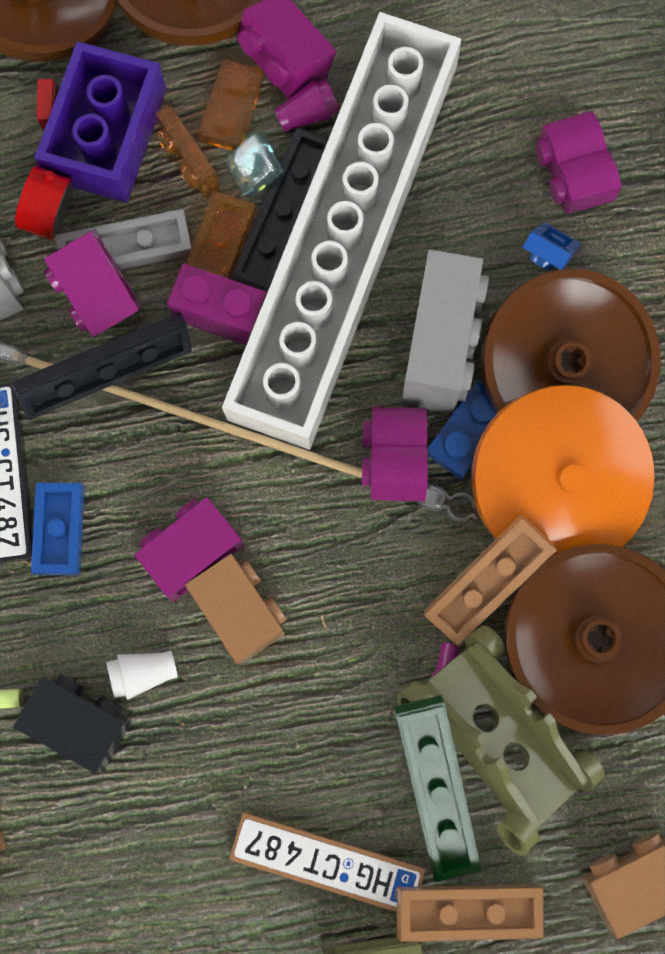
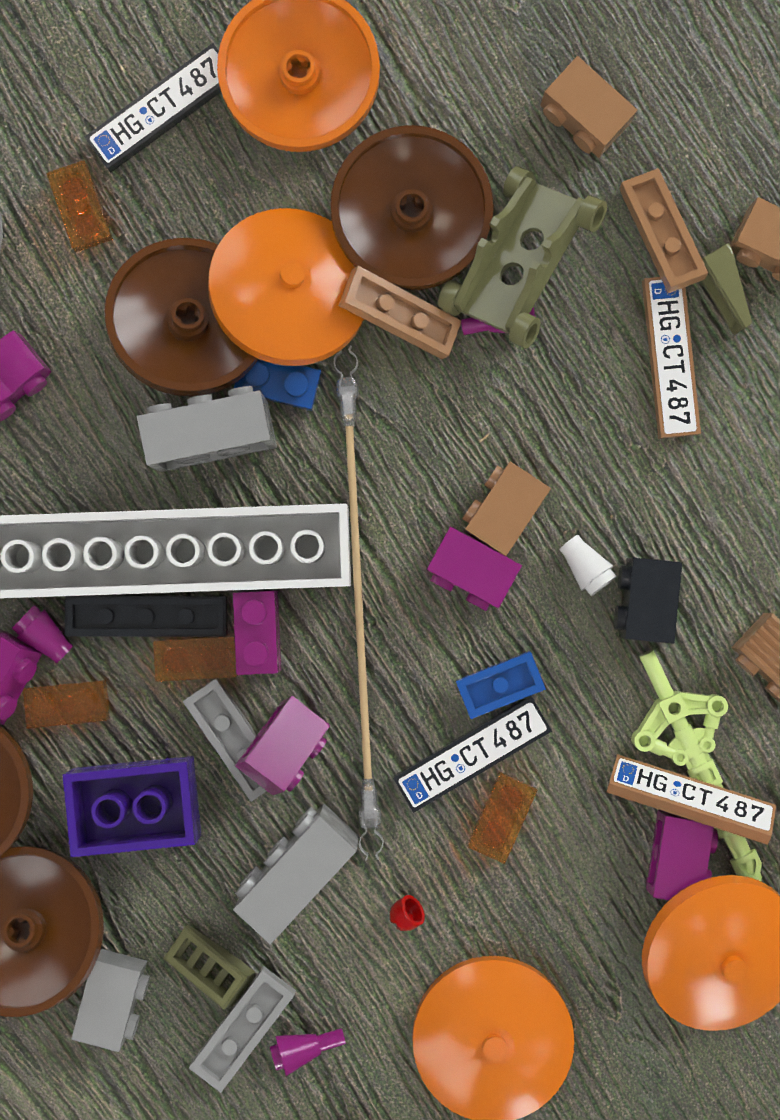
camera: 115 degrees left, 10 degrees up
(43, 202) = (227, 822): red piece -> none
(46, 96) = (134, 862): red tile -> none
(102, 366) = (351, 705): black tile -> none
(194, 167) = (120, 735): clear orange plate -> none
(253, 165) = (116, 658): clear light blue plate -> none
(397, 454) = (325, 429): magenta brick -> none
(437, 788) = (581, 289): tile -> none
(550, 247) = (93, 368): blue plate -> none

